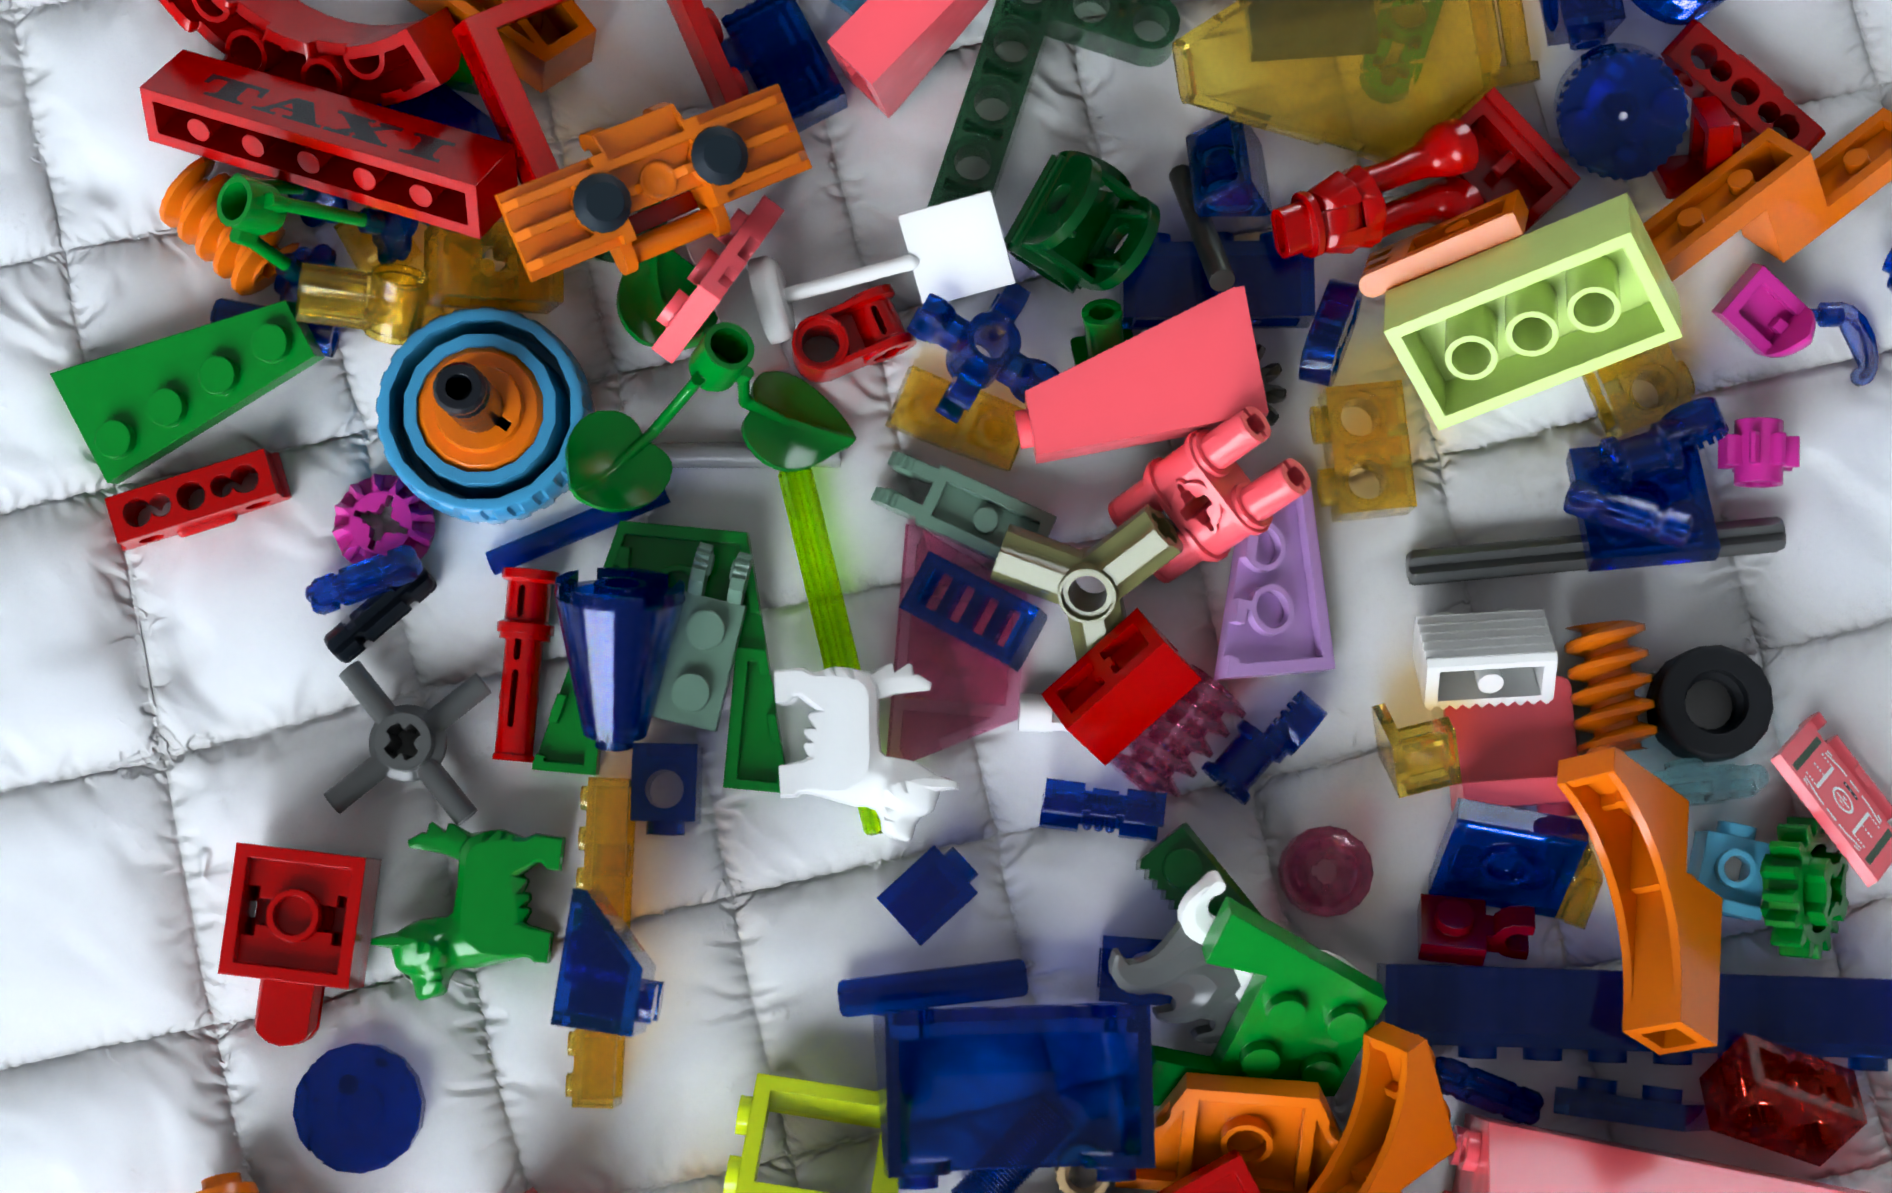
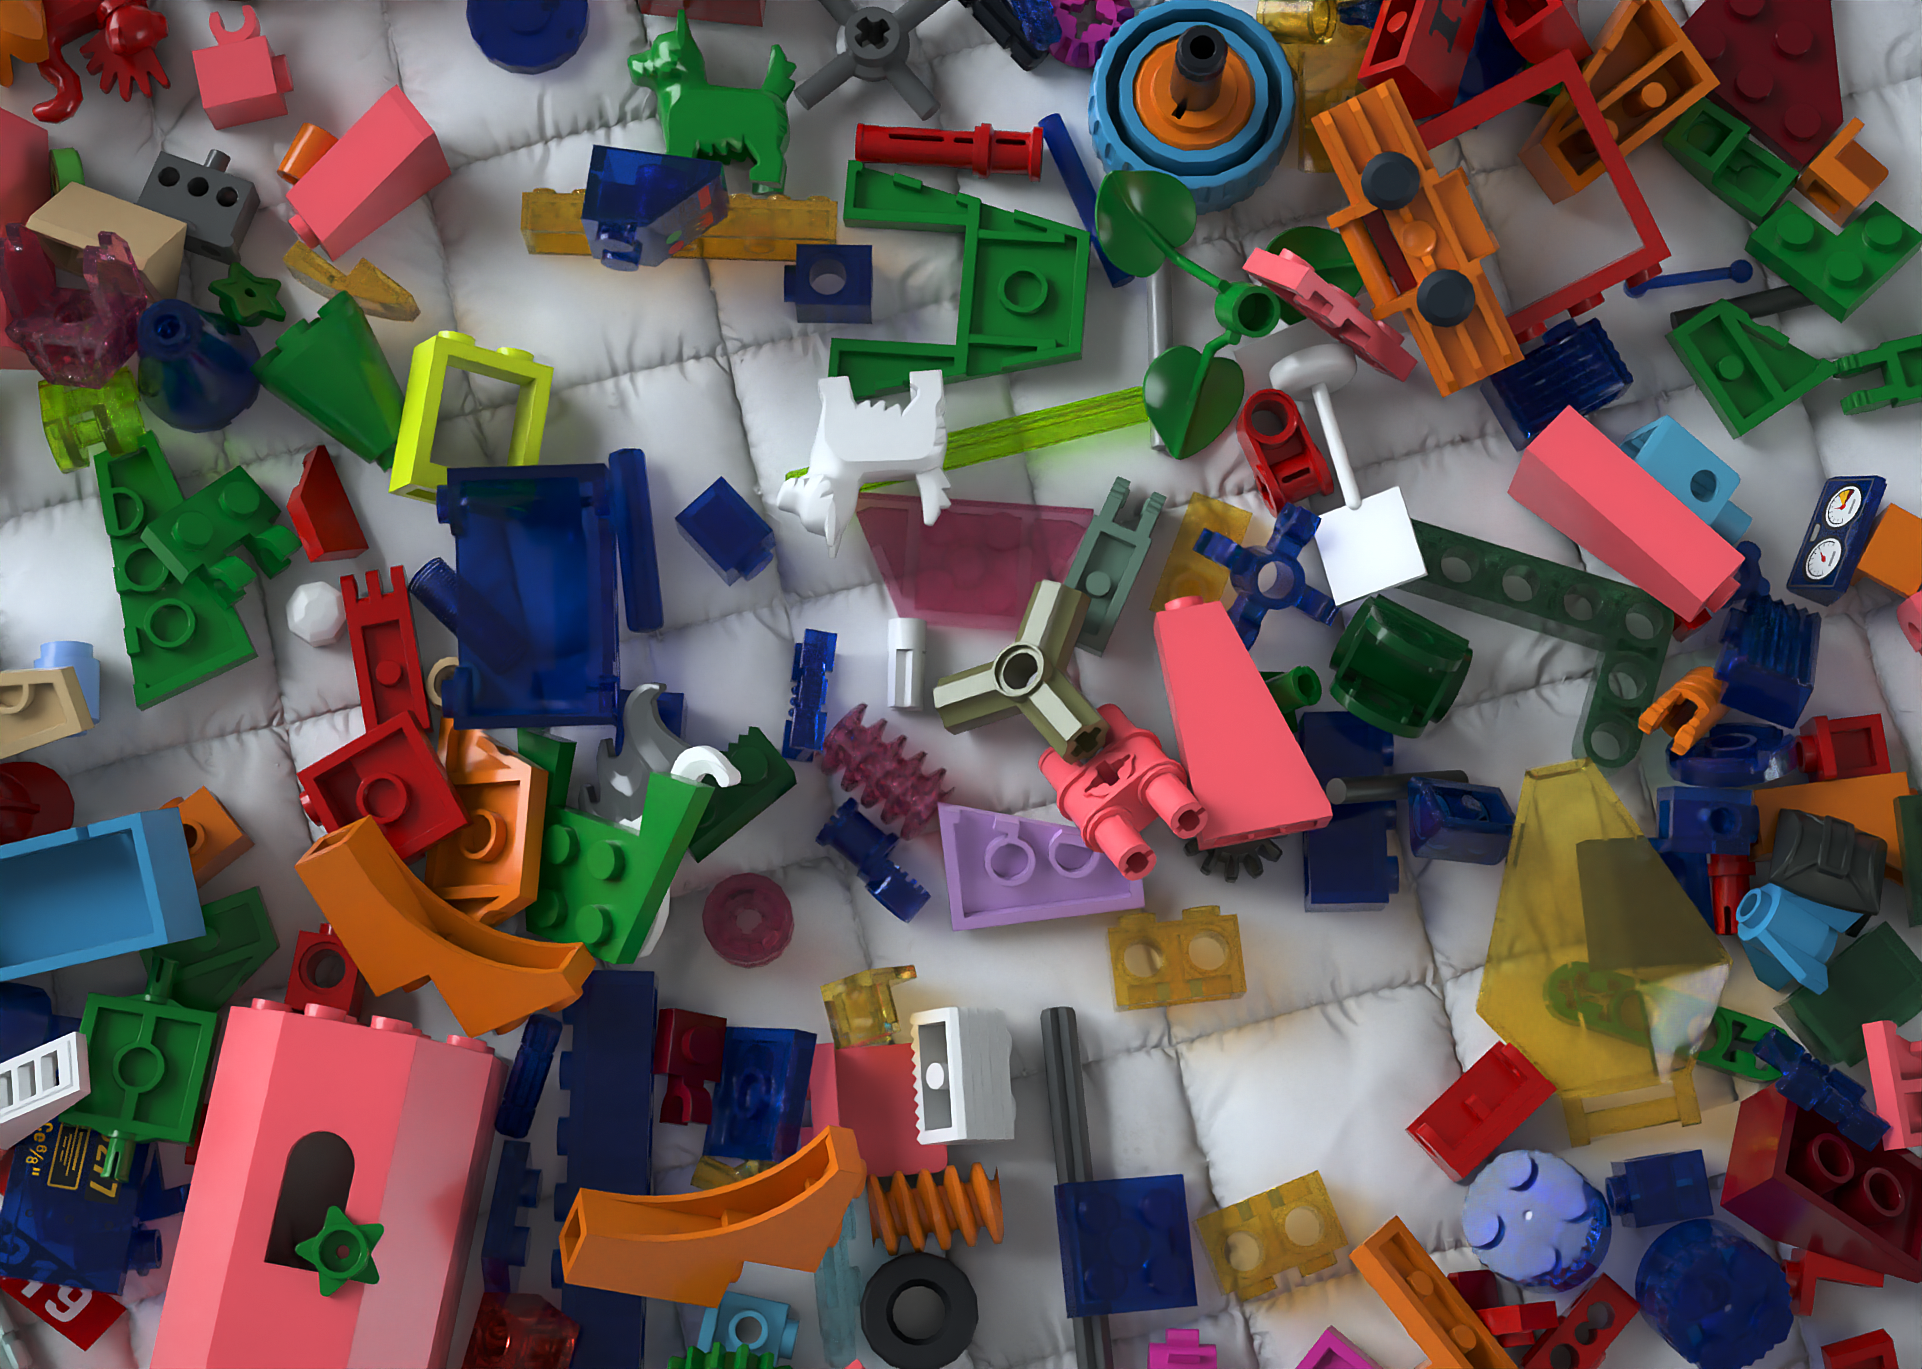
camera: 85 degrees right, 5 degrees down
(617, 648) = (964, 224): clear blue cone -> none
(704, 646) = (970, 312): sand green hinge -> none
(1019, 641) = (986, 606): clear blue slope -> none
(1120, 687) = (928, 706): red hinge -> none
(1330, 333) = (1295, 924): clear blue beam -> none
(1350, 207) = (1416, 931): red piece -> none
(1444, 244) = (1386, 1034): orange hinge -> none
(1533, 312) = (1314, 1112): yellowish green brick -> none
(1628, 513) = (1110, 1215): clear blue axle -> none
(1662, 446) = (1178, 1249): clear blue connector -> none

